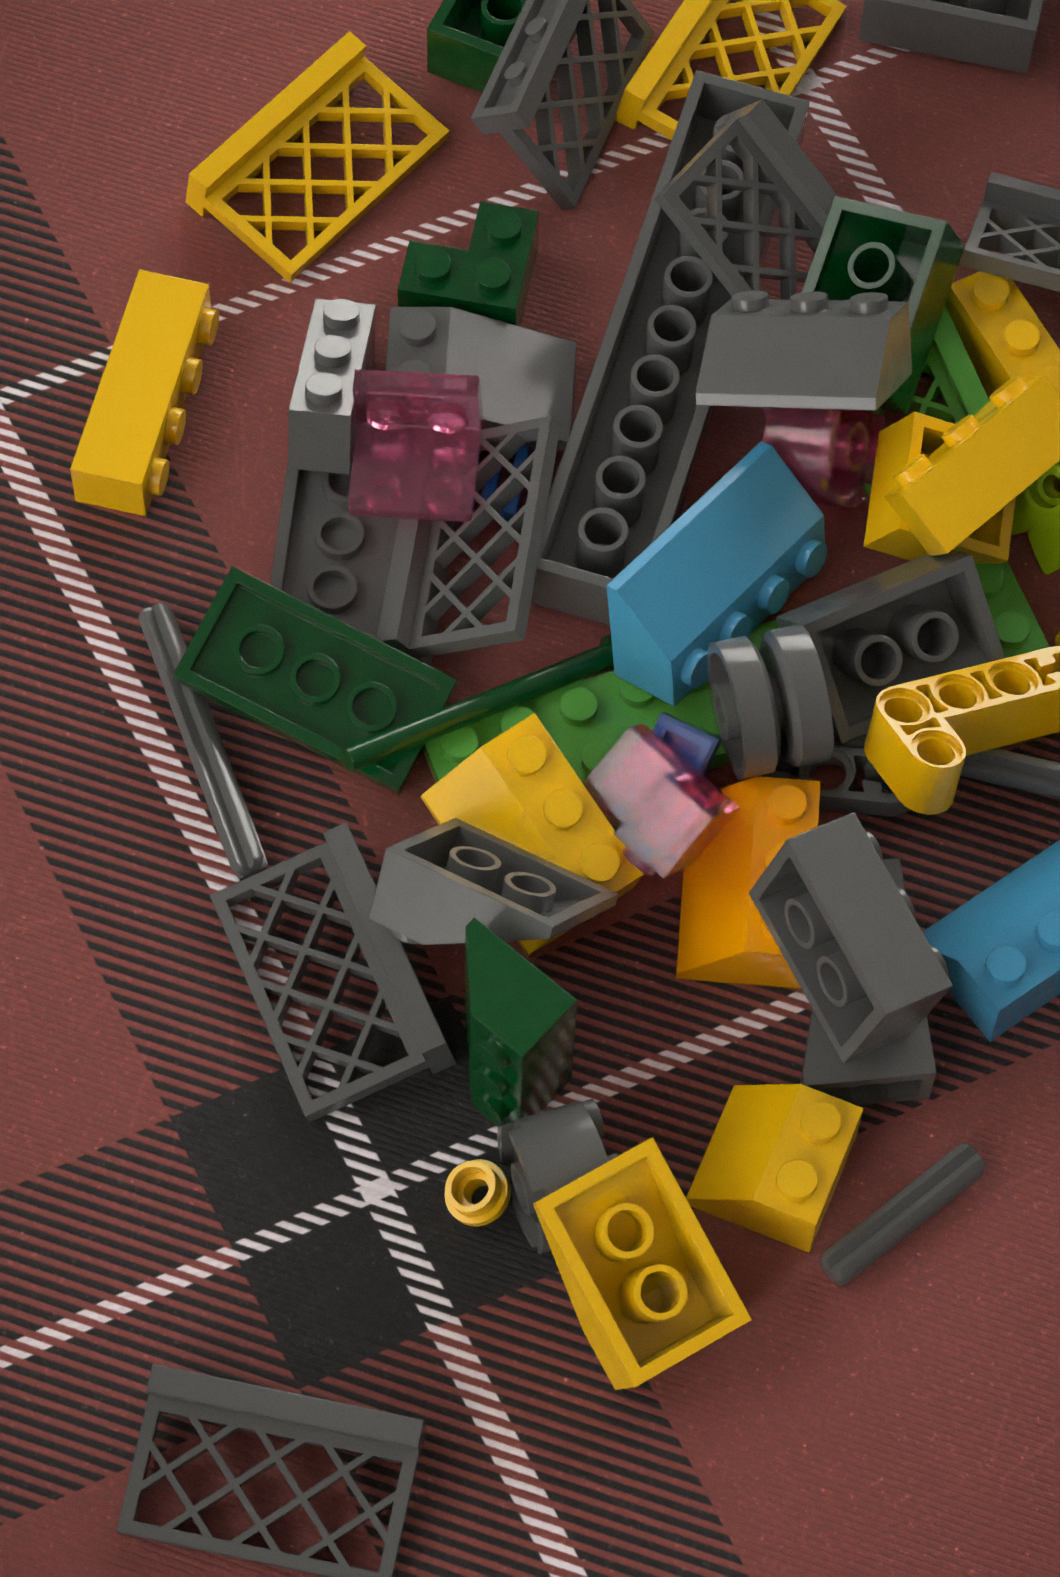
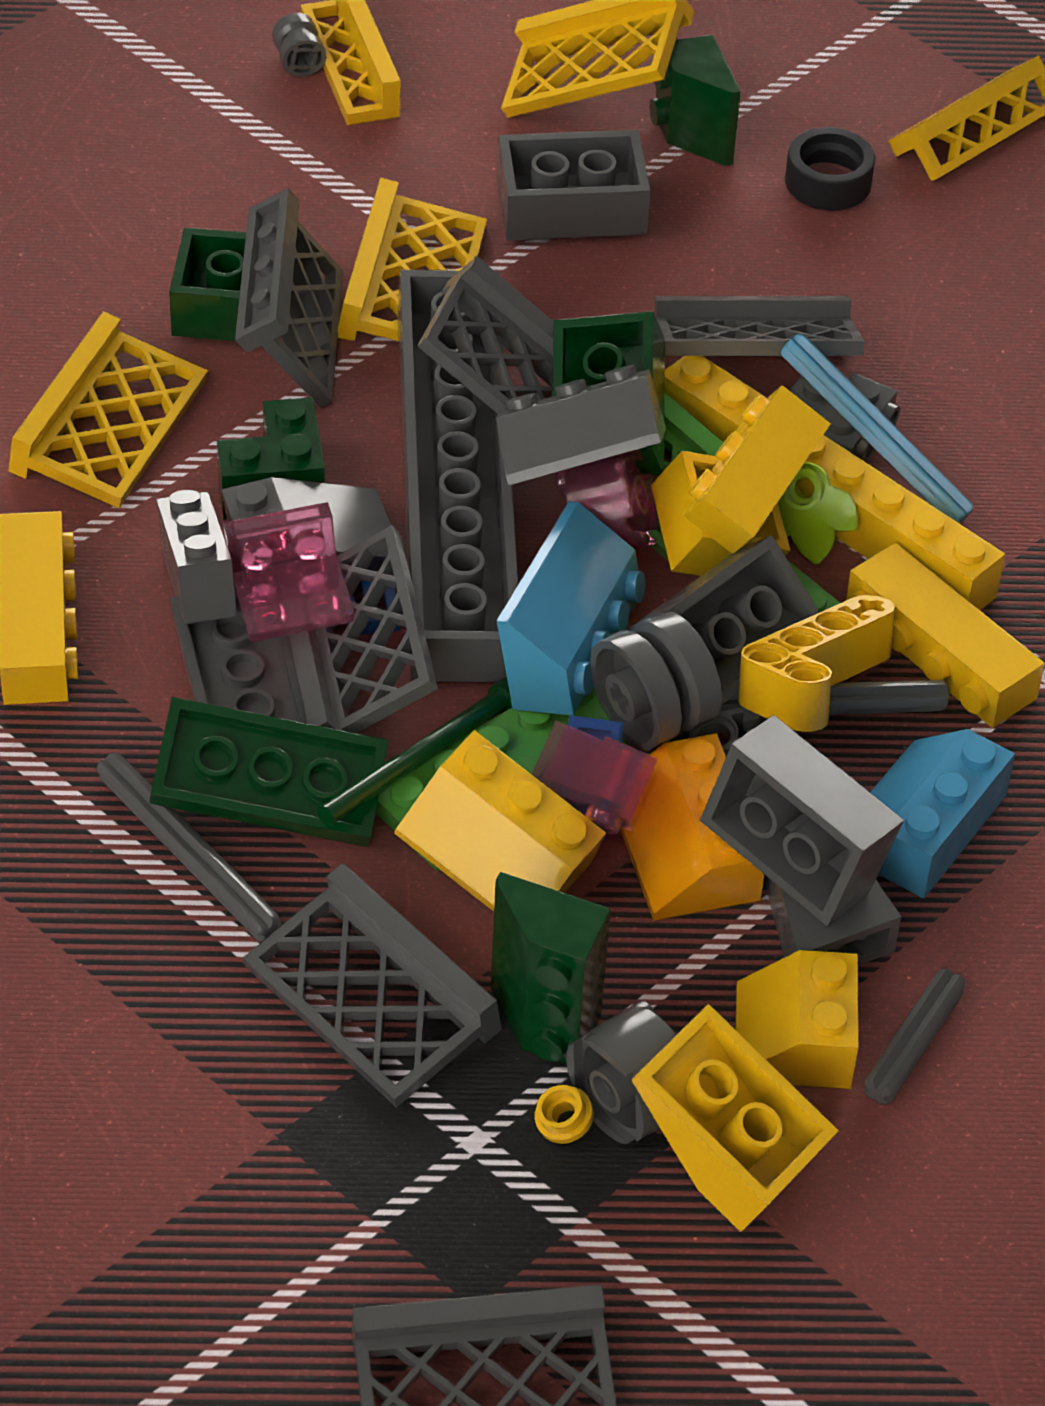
camera: 20 degrees left, 15 degrees down
(459, 872) = (455, 878): dark grey slope -> none

